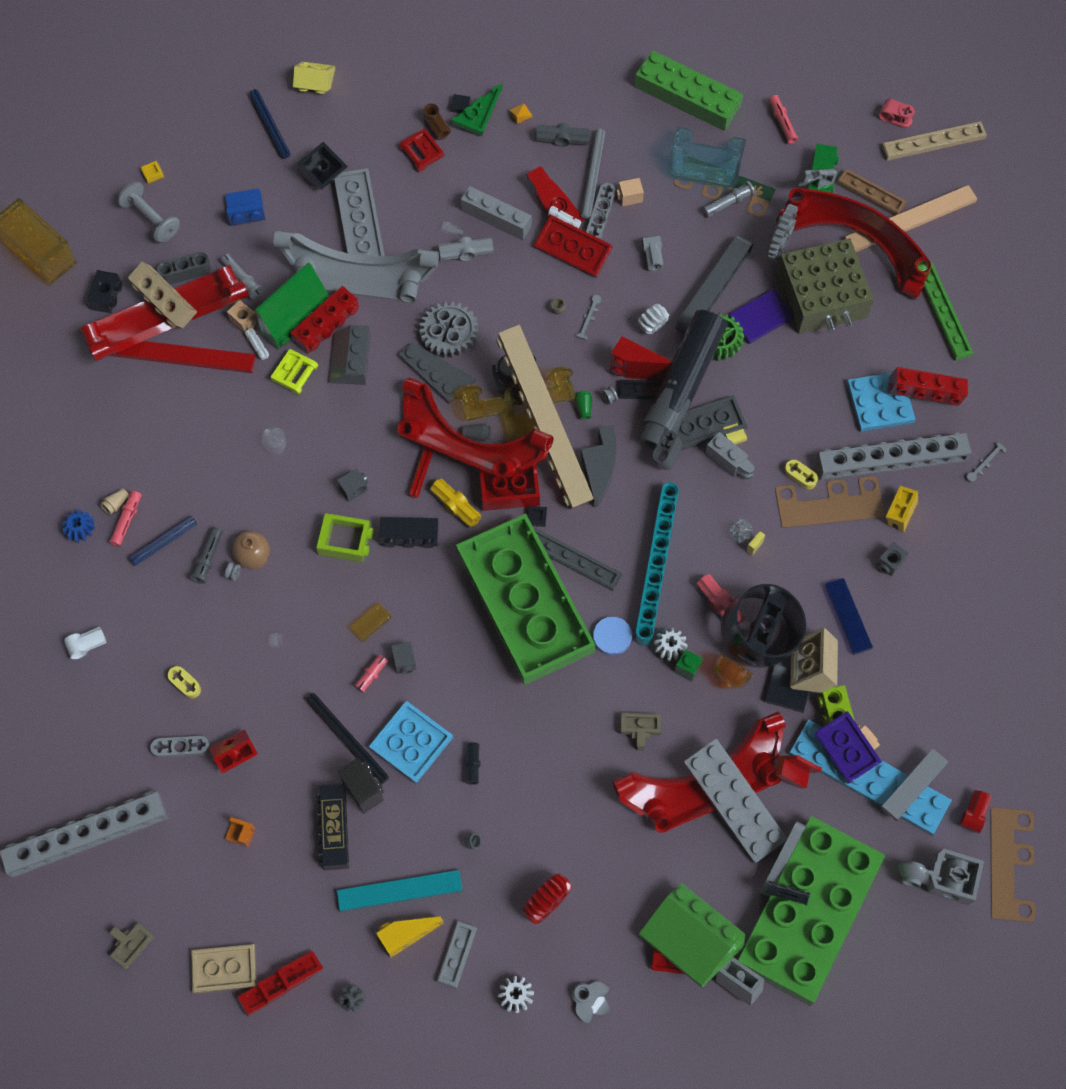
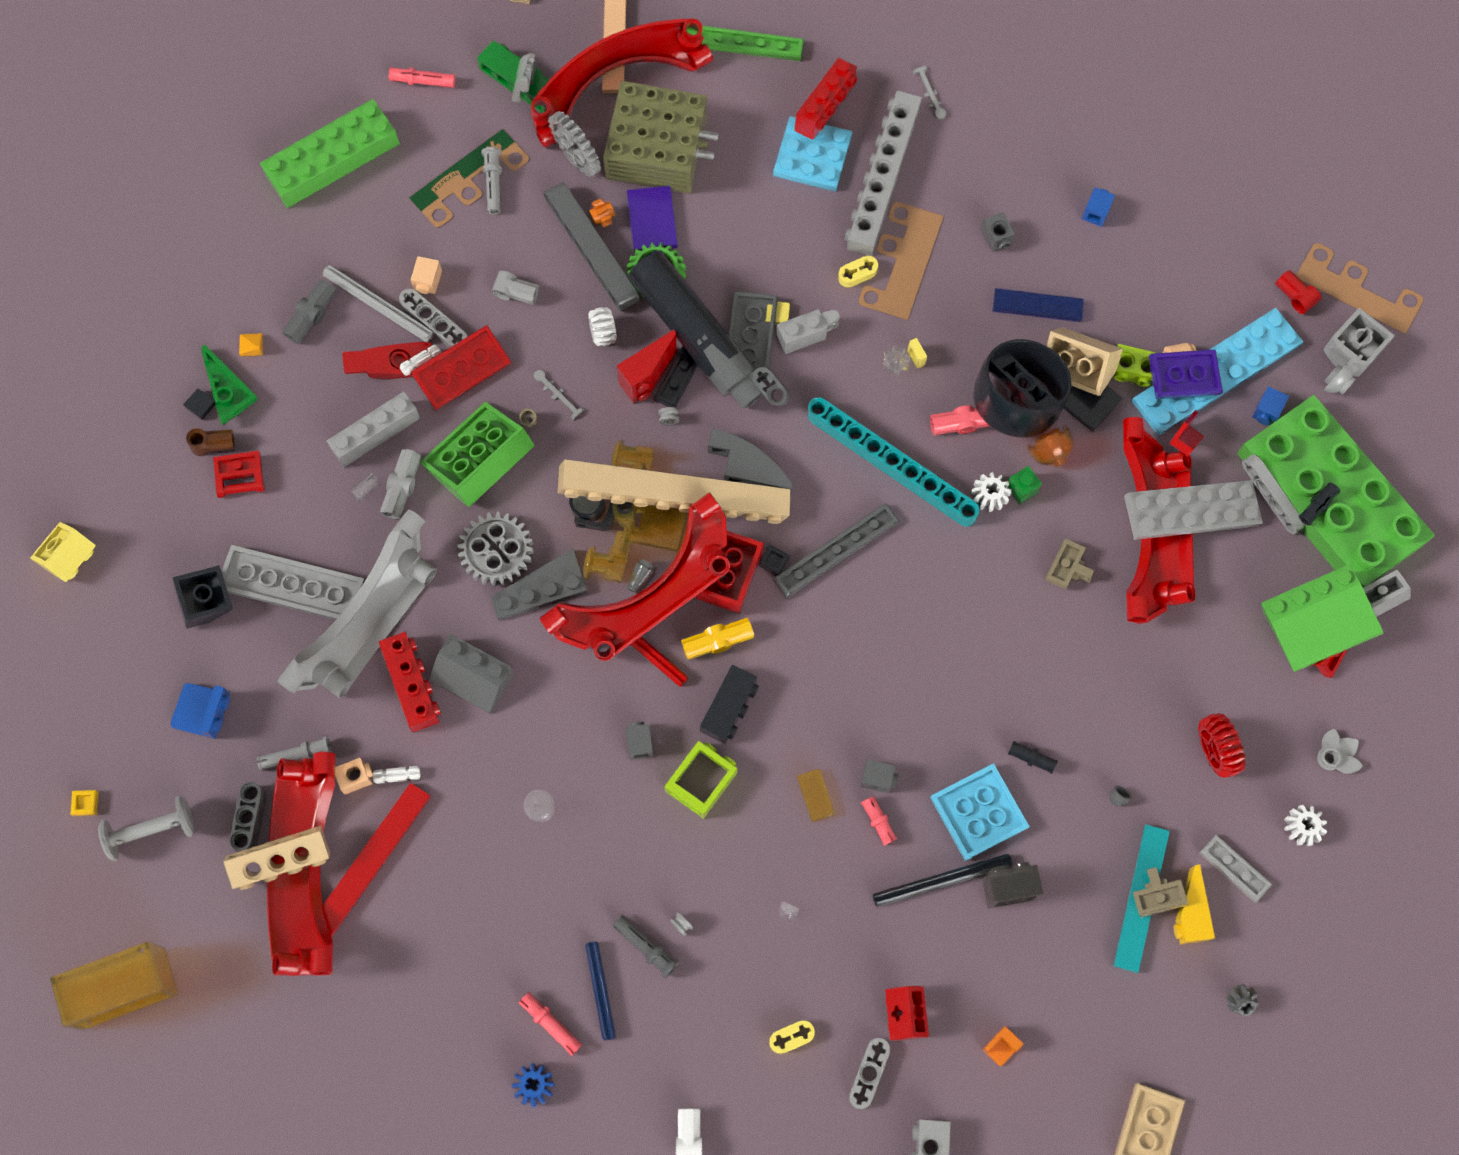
camera: 65 degrees left, 5 degrees up
(102, 282) = (213, 924): black brick -> none
(114, 501) = (522, 1029): tan cone -> none
(251, 550) = (659, 902): medium nougat cylinder -> none
(270, 124) = (97, 632): dark blue axle -> none
(279, 983) = (1193, 1073): red slope -> none
(289, 368) = (451, 751): neon yellow plate -> none
(290, 306) = (381, 710): green slope -> none
(333, 827) = (1043, 938): black brick -> none
(404, 898) = (1159, 895): none -> dark tan hinge
(513, 286) = (477, 453): none -> bright green slope
(525, 599) = (875, 614): bright green plate -> none
(584, 404) = (666, 448): green cone -> none
(612, 635) = (951, 546): light blue tile -> none
(705, 162) = (433, 178): clear light blue windscreen -> none
(744, 280) = (602, 213): none -> orange gear
(860, 828) = (1270, 406): none -> blue brick
(871, 192) = (563, 36): medium nougat tile -> none
(902, 508) = (947, 192): yellow hinge -> none
(914, 784) = (1249, 332): light grey tile -> none
(959, 625) = (1098, 206): none -> blue brick

